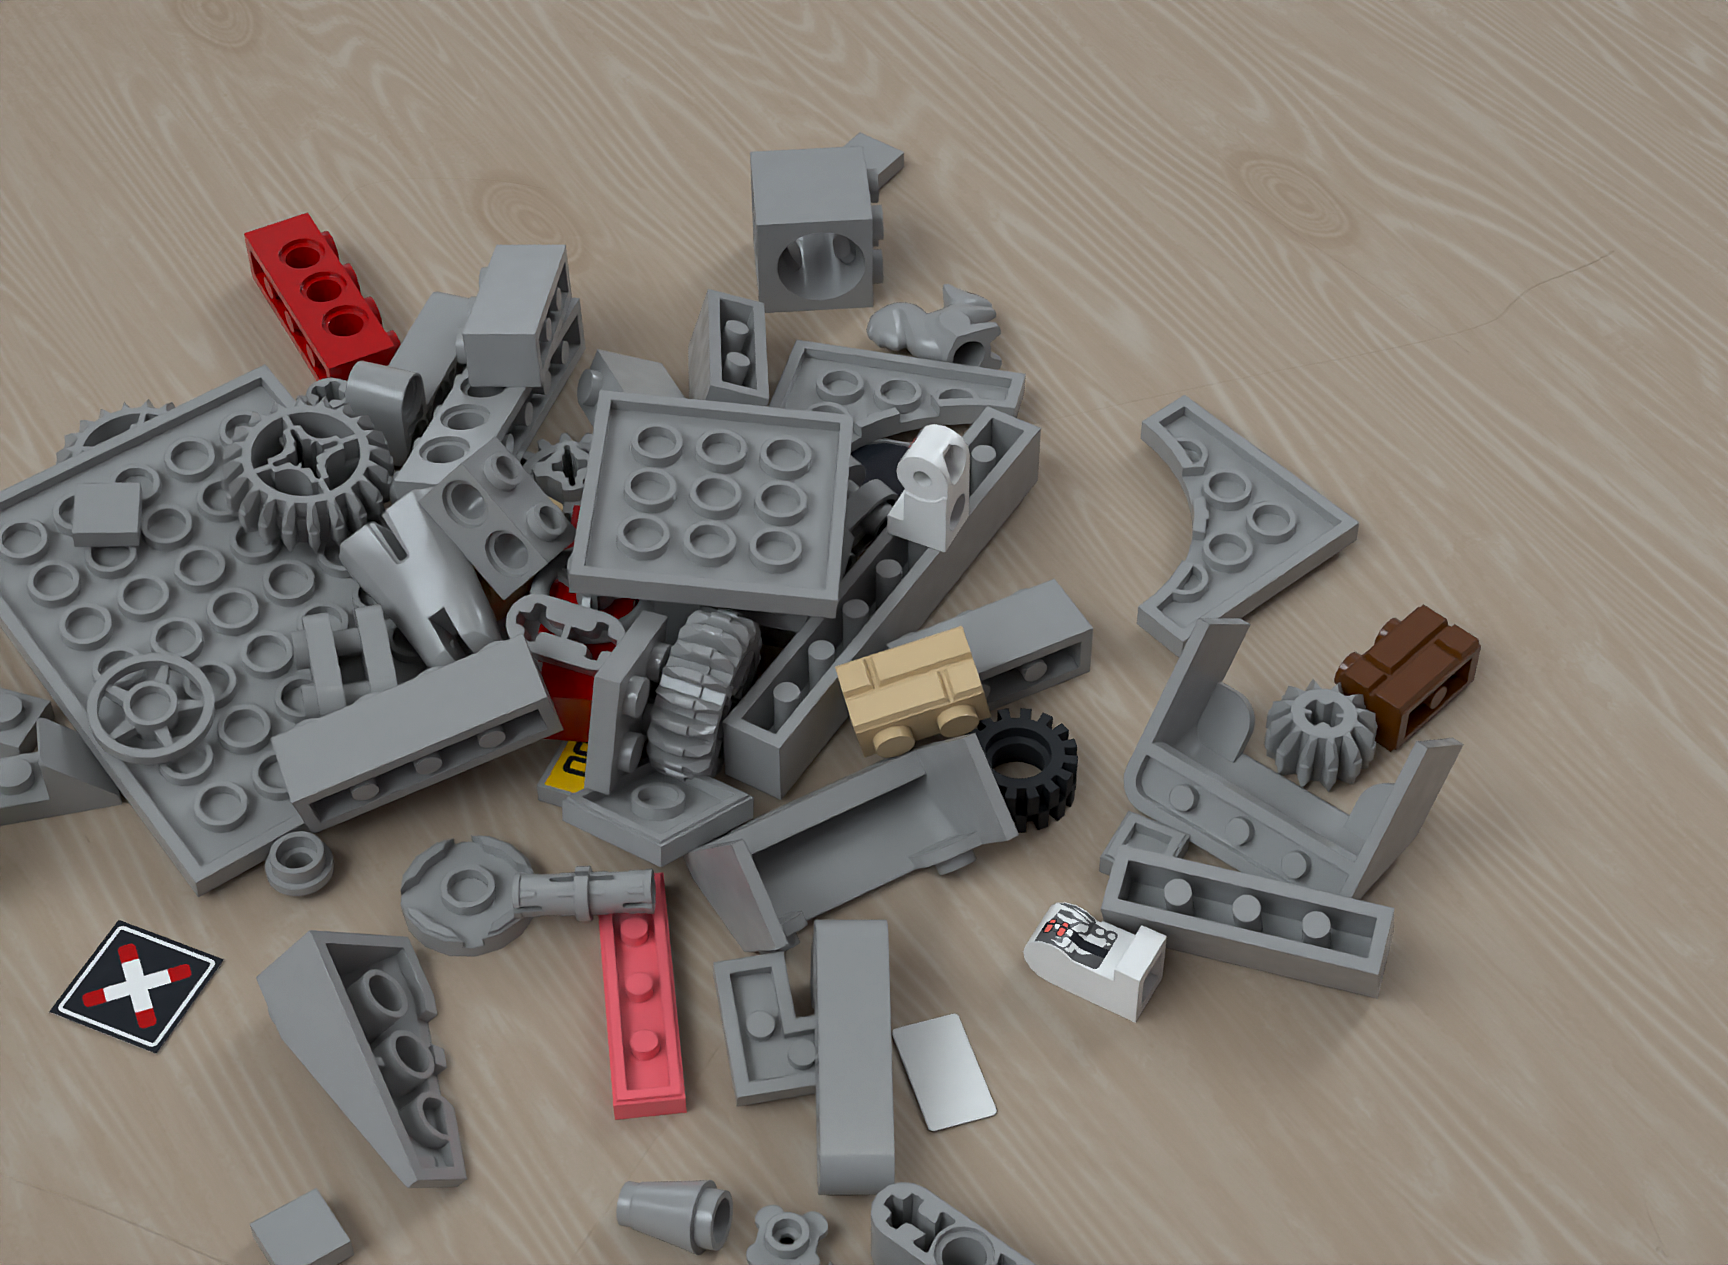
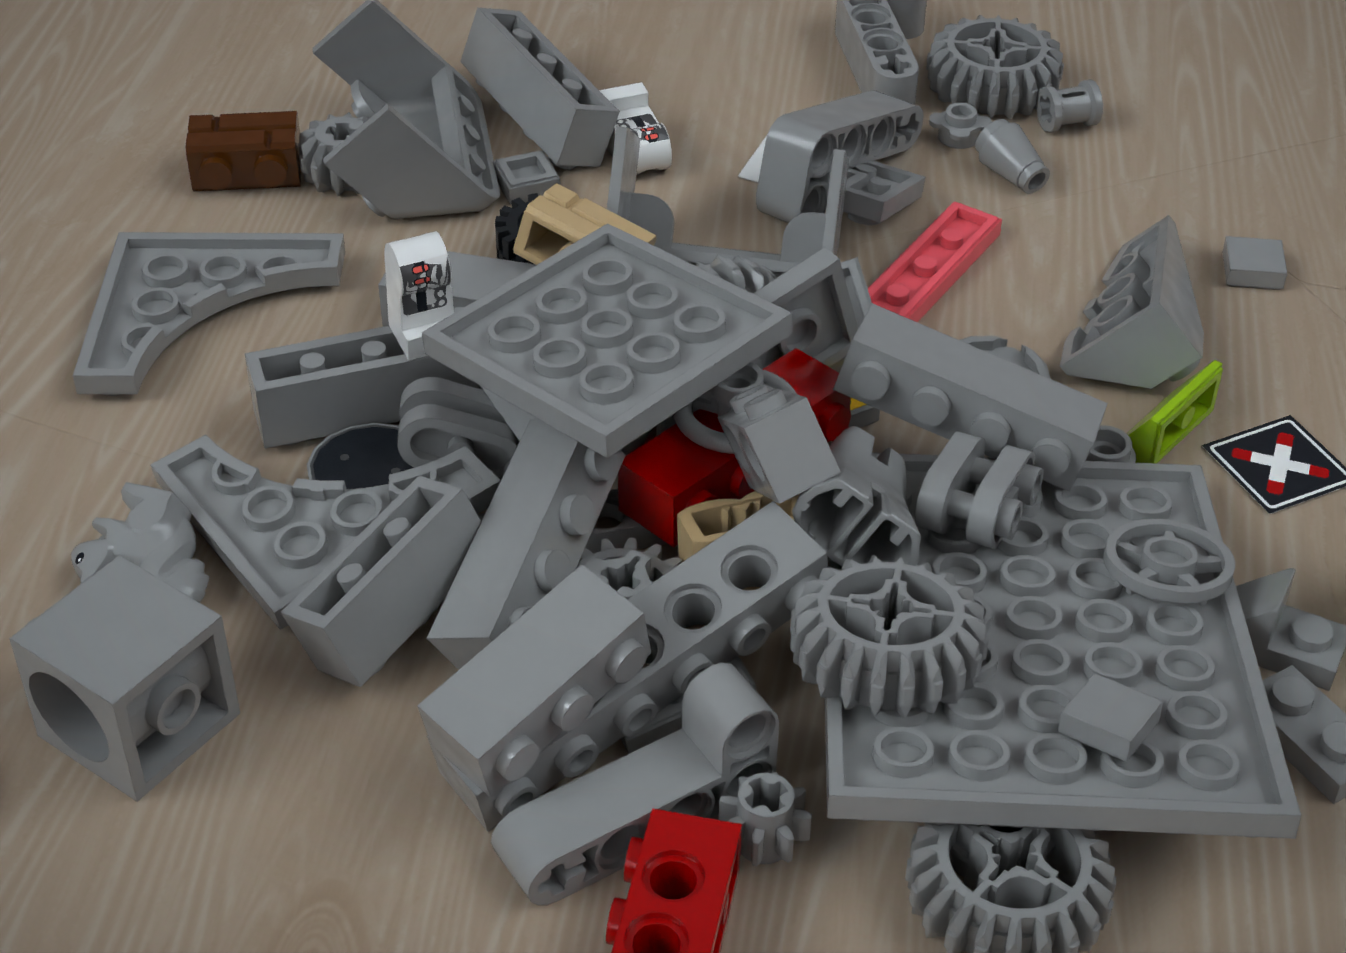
camera: 140 degrees left, 5 degrees down
(266, 926) = (1176, 415): none -> lime slope
(573, 621) = (805, 372): light grey beam -> none
(583, 893) = (923, 298): light grey pin -> none

